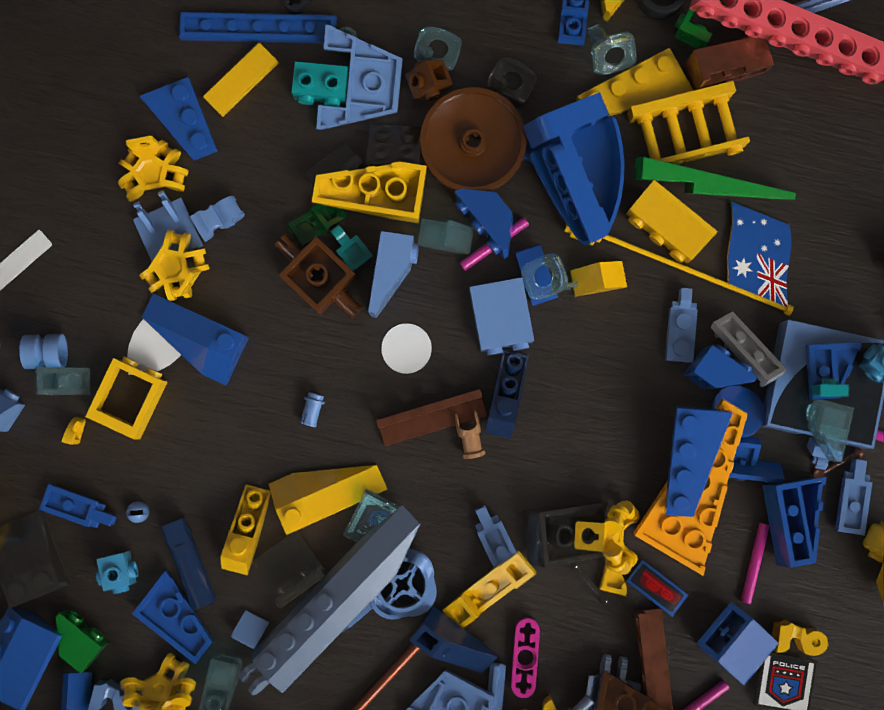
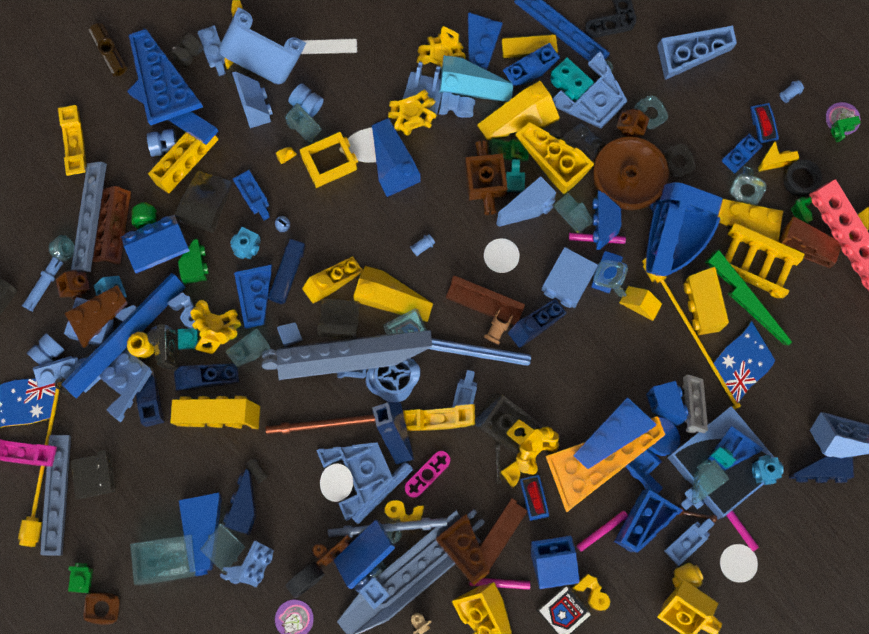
camera: 35 degrees right, 10 degrees down
(205, 177) = (470, 80): none -> medium azure wedge
(263, 103) = (531, 66): none -> blue slope
(299, 156) = (530, 105): none -> yellow wedge
(471, 476) = (481, 352): none -> medium blue axle
(681, 328) = (666, 366): medium blue hinge -> none

